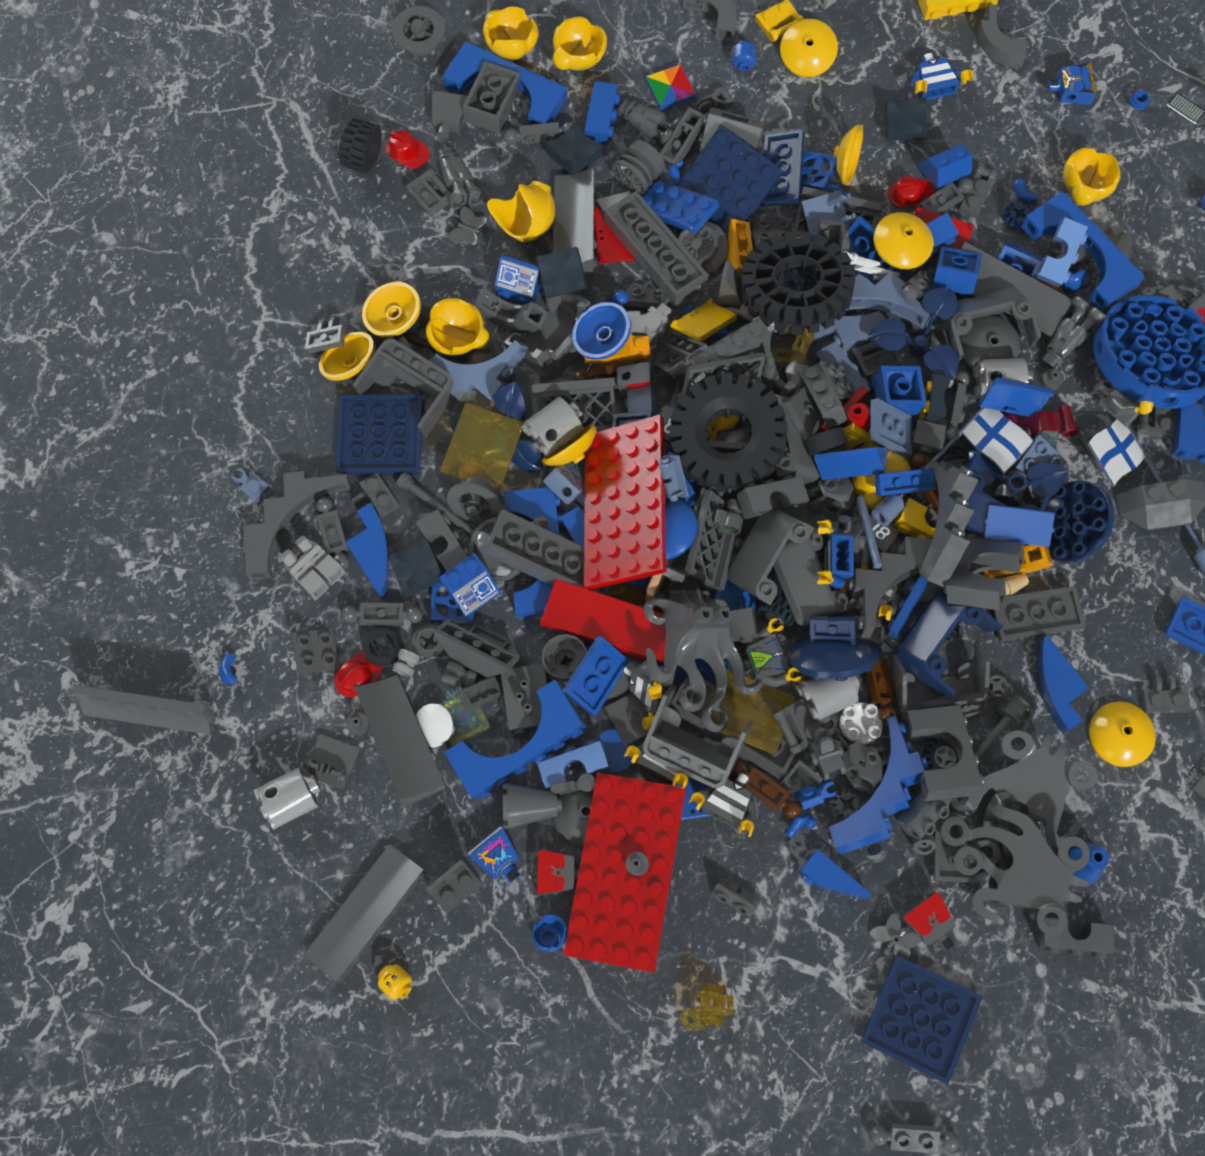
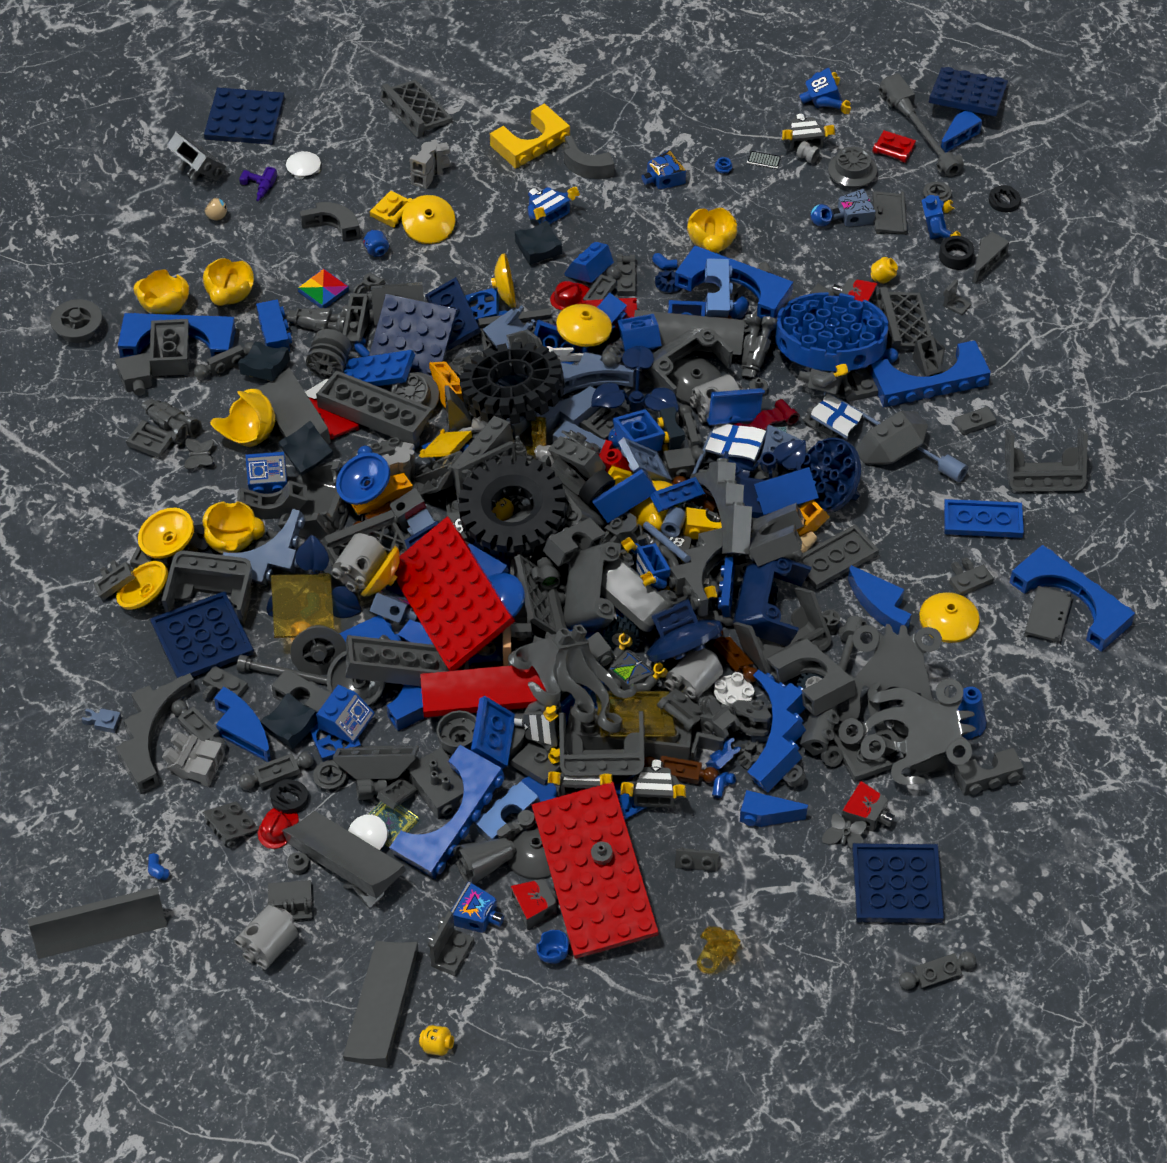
camera: 25 degrees left, 20 degrees down
(360, 145) = (71, 421): black tyre -> none
(406, 663) = (318, 798): light grey wheel -> none
(407, 149) = (111, 415): red piece -> none
(672, 470) = (484, 554): sand blue hinge -> none

